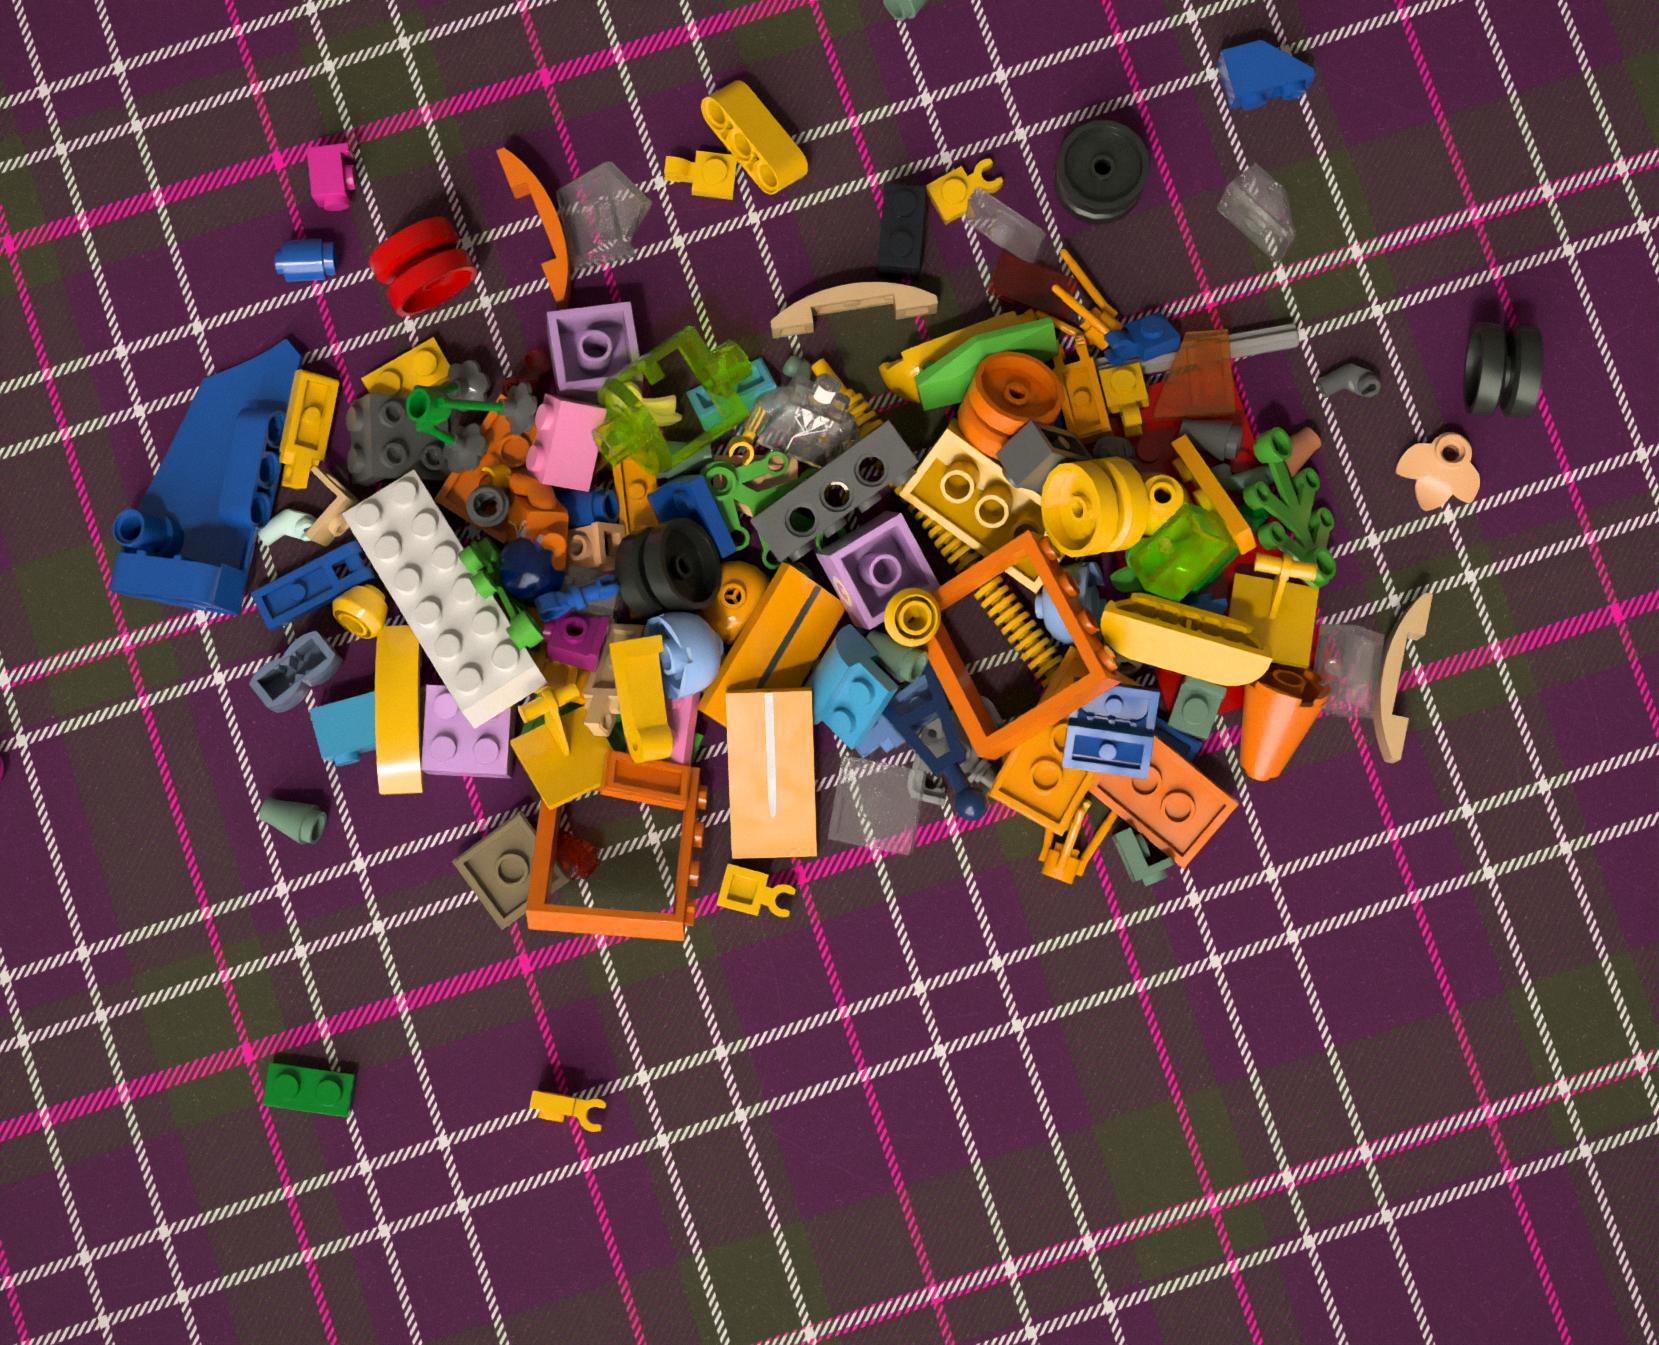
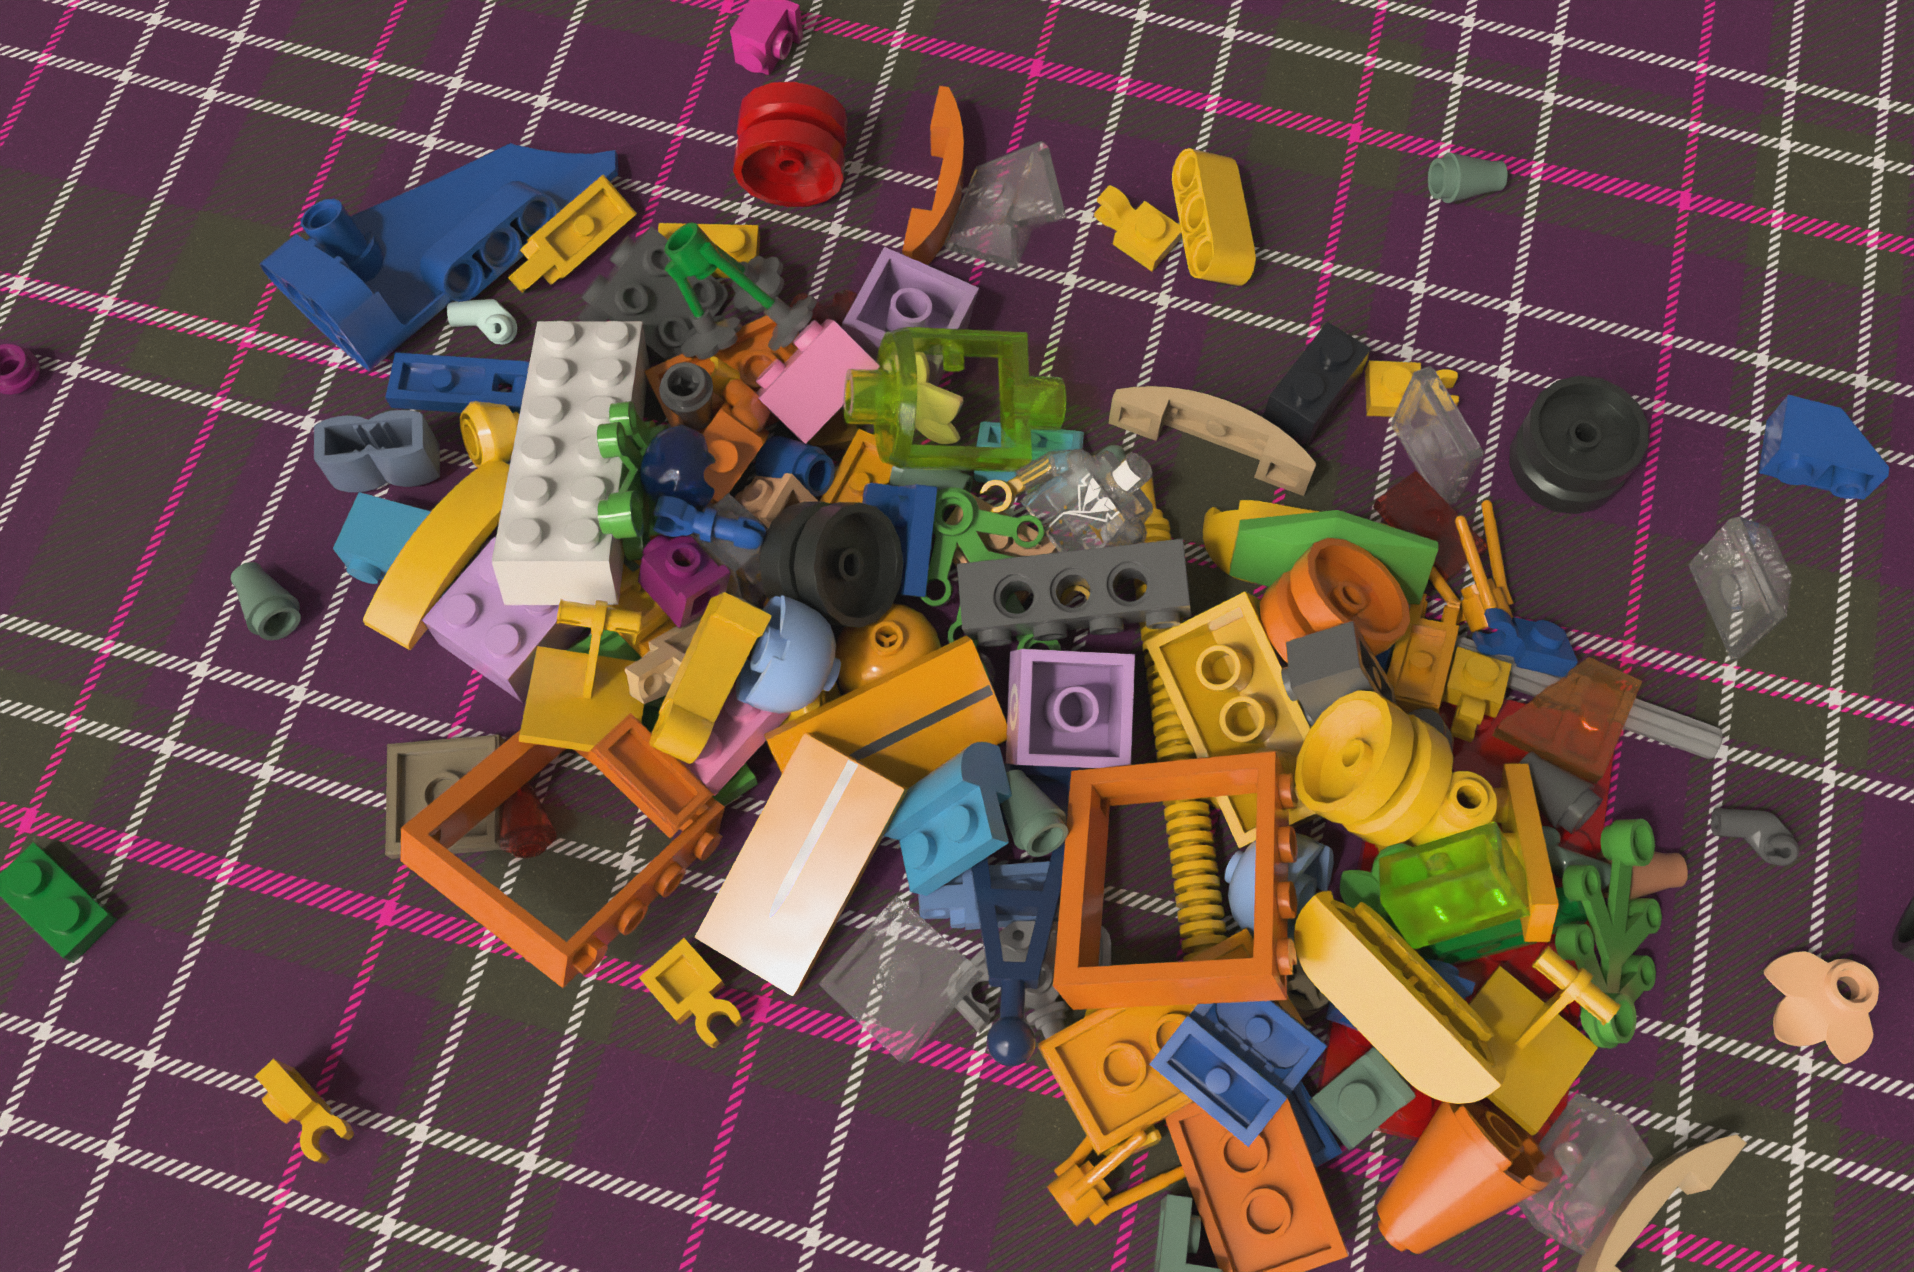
camera: 30 degrees right, 15 degrees down
(306, 259) = (686, 91): blue brick -> none
(331, 521) = (517, 332): tan bracket -> none
(912, 617) = (1090, 766): yellow cone -> none

